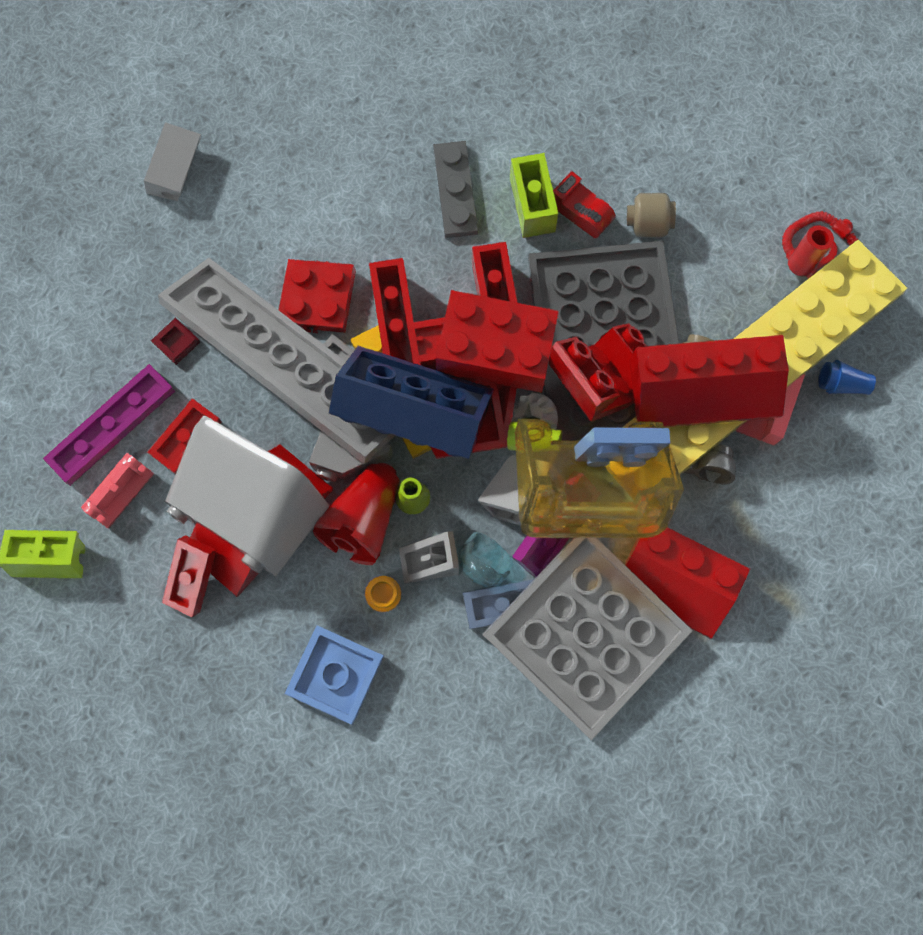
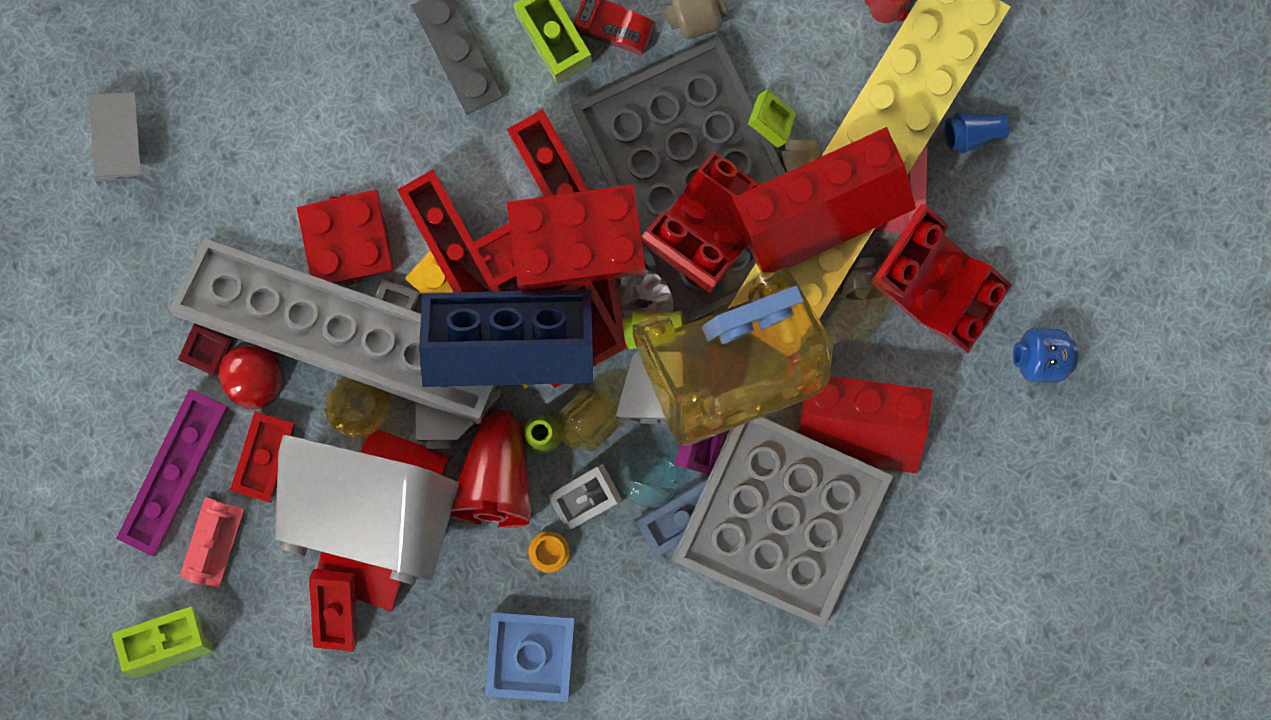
camera: 20 degrees left, 10 degrees up
(201, 373) = (251, 376): none -> red hair
(264, 433) = (352, 422): none -> clear yellow gear
(453, 498) = (587, 420): none -> clear yellow head
(684, 315) = (772, 118): none -> lime tile
(778, 484) = (939, 281): none -> red slope
(853, 577) = (1045, 355): none -> blue head

